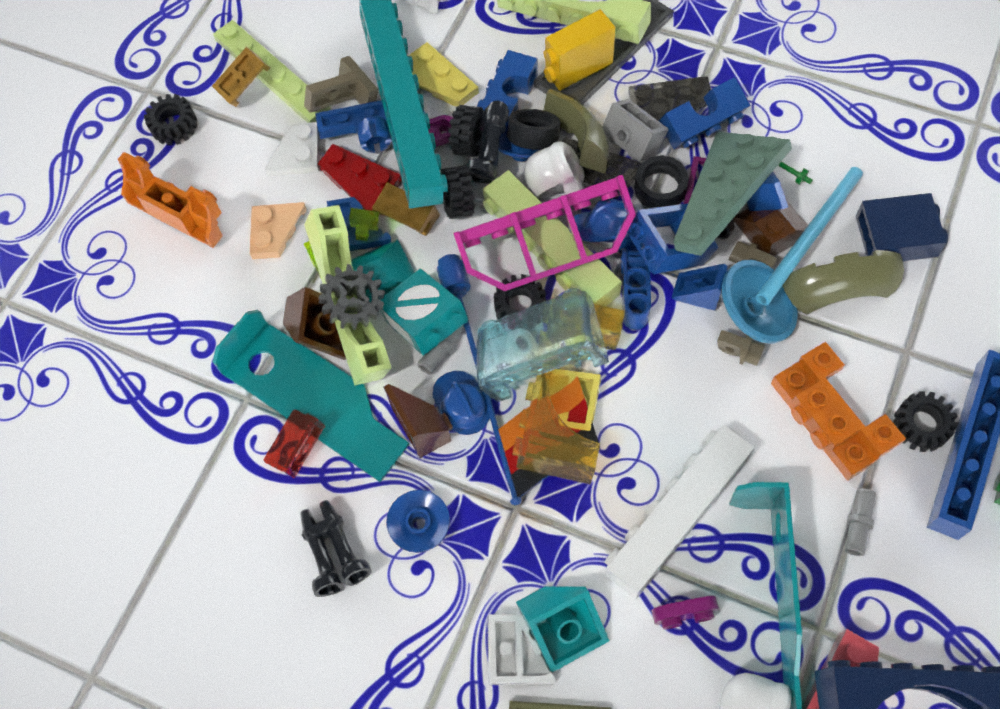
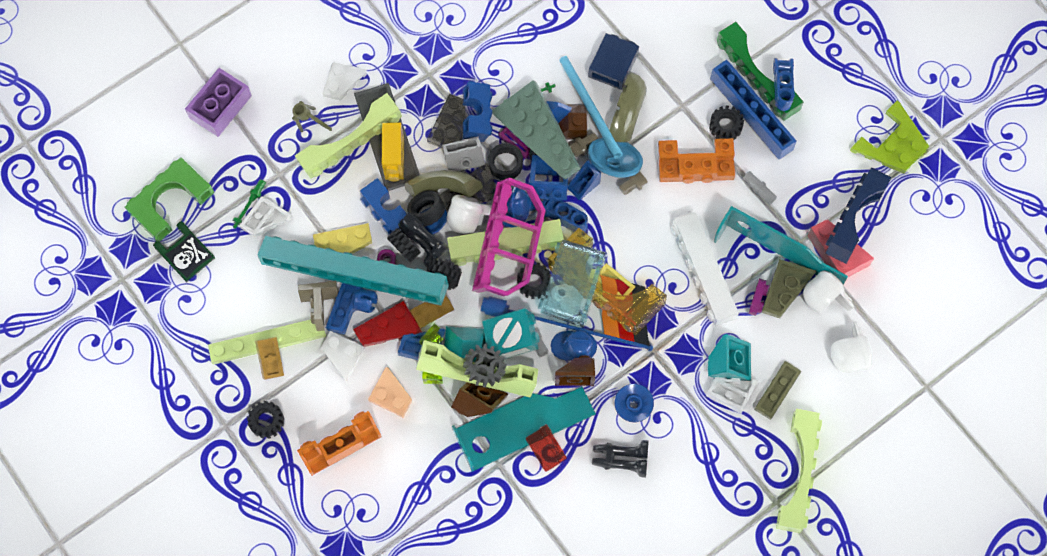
camera: 65 degrees left, 5 degrees up
(729, 645) = (785, 287): none -> olive wing

